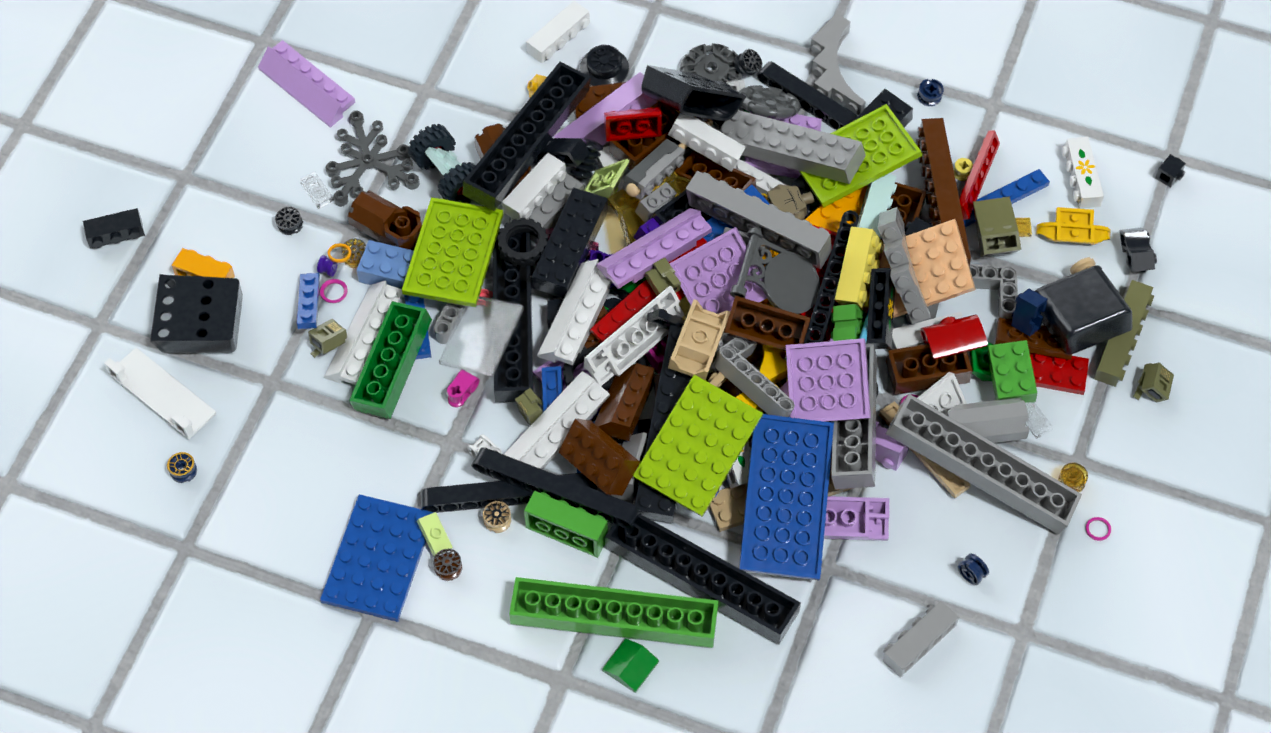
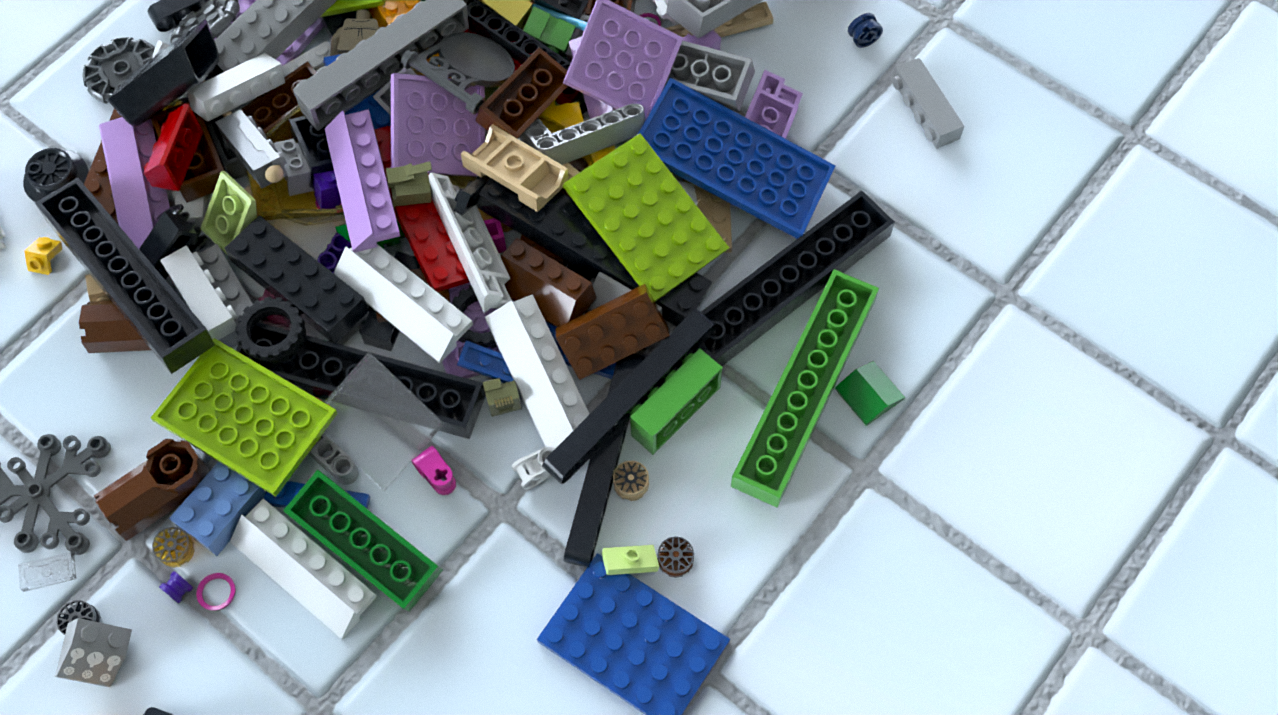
camera: 70 degrees left, 5 degrees up
(266, 236) = (92, 652): none -> light grey slope
(308, 301) = (222, 625): plate -> none
(327, 337) = (290, 615): olive piece -> none
(339, 260) = (161, 553): light orange piece -> none
(434, 148) = (69, 400): black plate -> none
(748, 63) = (138, 29): black wheel -> none

